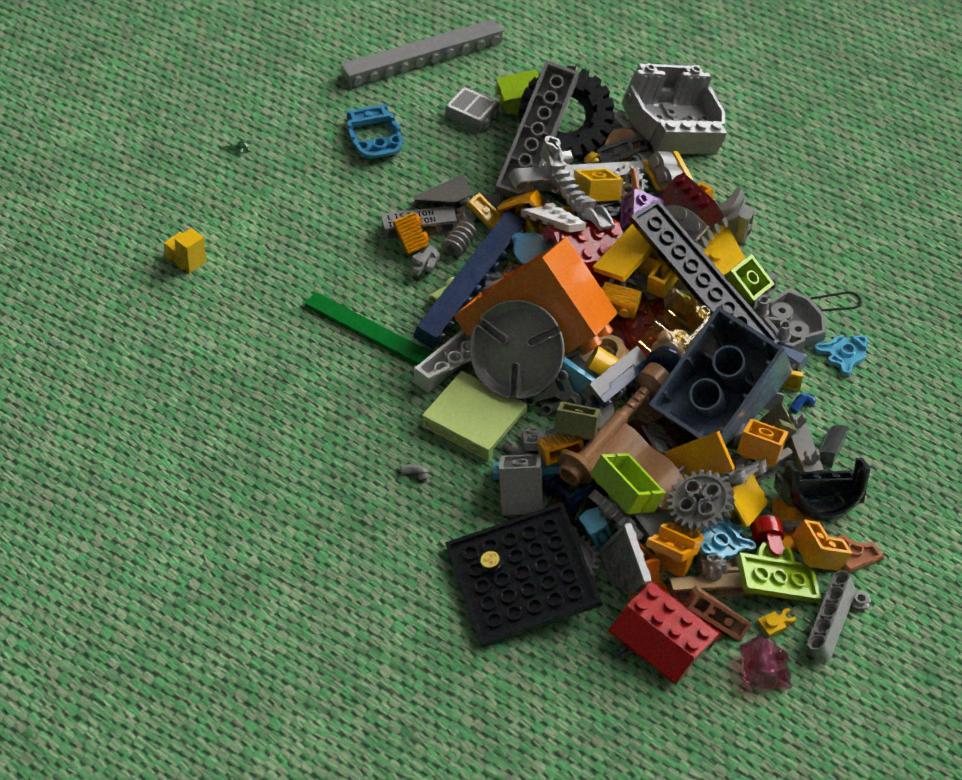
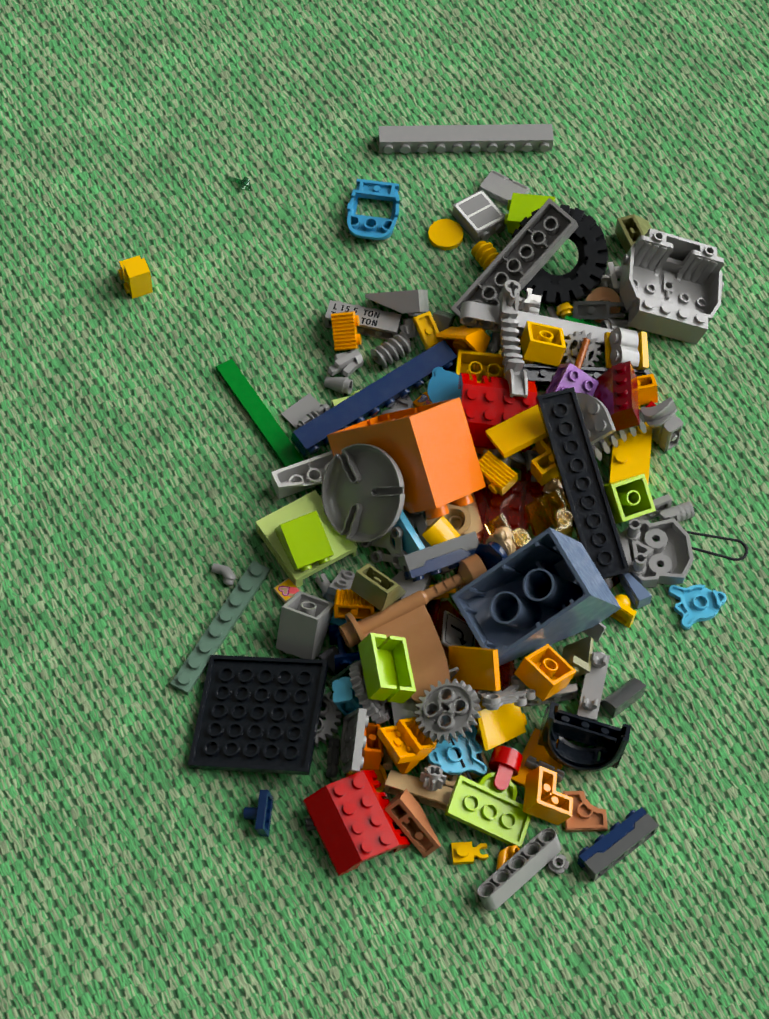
camera: 25 degrees right, 10 degrees up
(410, 313) = (304, 411): none -> light grey hinge
(427, 281) = (339, 384): none -> light grey cone
(438, 518) = (220, 627): none -> sand green plate
(449, 133) = (445, 234): none -> yellow tile
(478, 82) = (501, 187): none -> light grey piece
(481, 412) = (304, 541): none -> lime slope
(481, 465) = (286, 590): none -> tile
(490, 561) = (235, 690): tile -> none
(498, 138) = (484, 253): none -> yellow piece
(554, 215) = (479, 365): white wing -> none
(572, 659) = (262, 813): none -> dark blue tile
(608, 589) = (333, 757): none -> dark grey axle
(615, 82) = (629, 229): none -> olive slope
(765, 664) = (431, 891): clear pink slope -> none
(791, 282) = (679, 512): none -> light grey hinge
(802, 399) = (625, 638): blue arm -> none
(811, 611) = (505, 854): none -> light orange arm
(900, 565) = (617, 844): none -> dark grey piece

